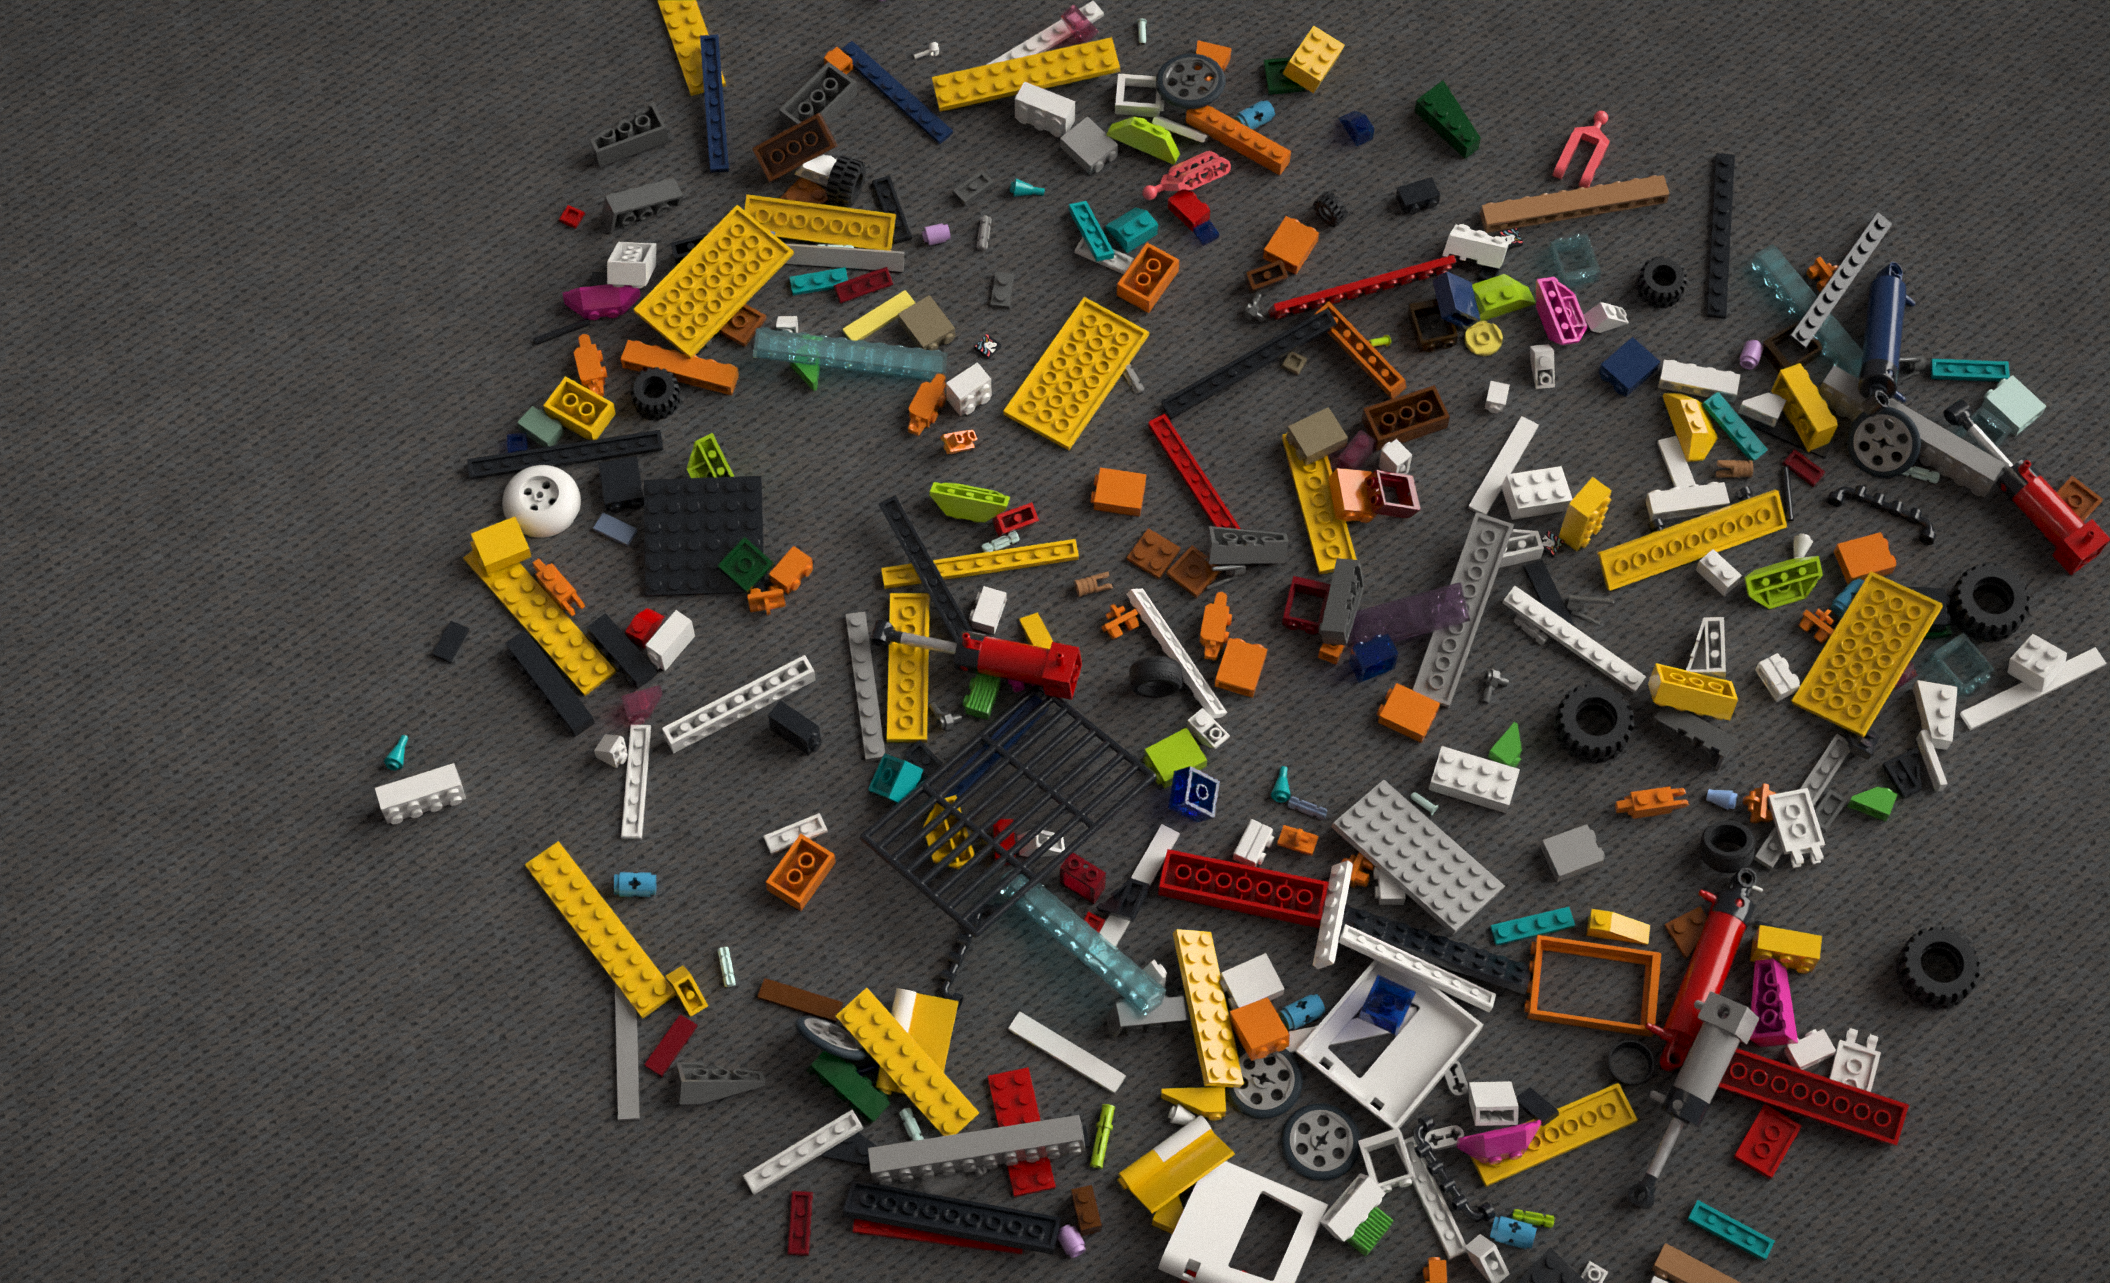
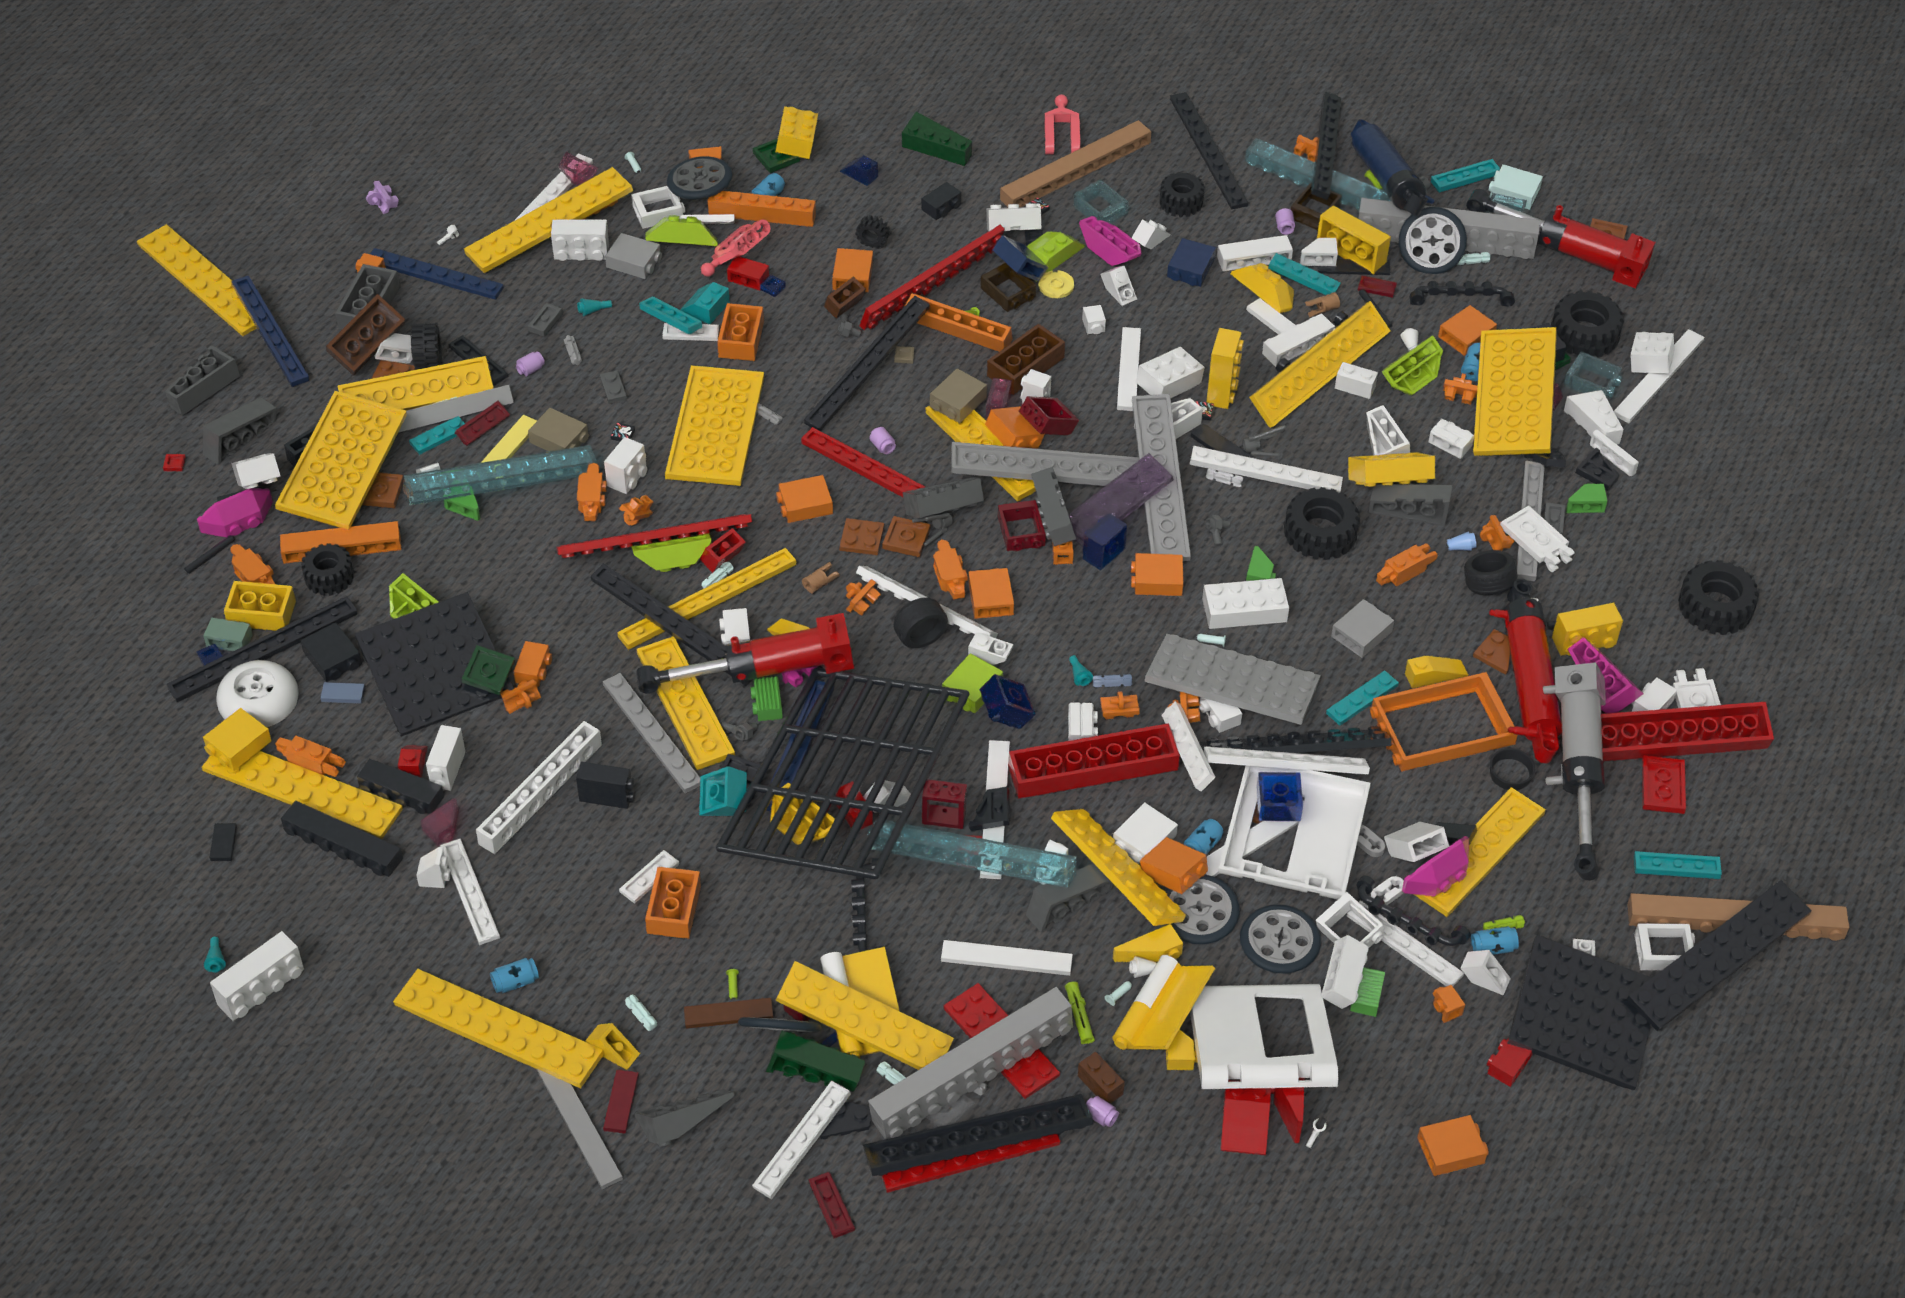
camera: 25 degrees left, 15 degrees down
(817, 973) = (732, 979): none -> lime piece
(958, 475) = (646, 537): none -> red plate
(1148, 1131) = (1119, 992): none -> light aqua piece
(1224, 455) = (882, 440): none -> lavender brick
(1352, 542) = (1022, 462): none -> light grey plate

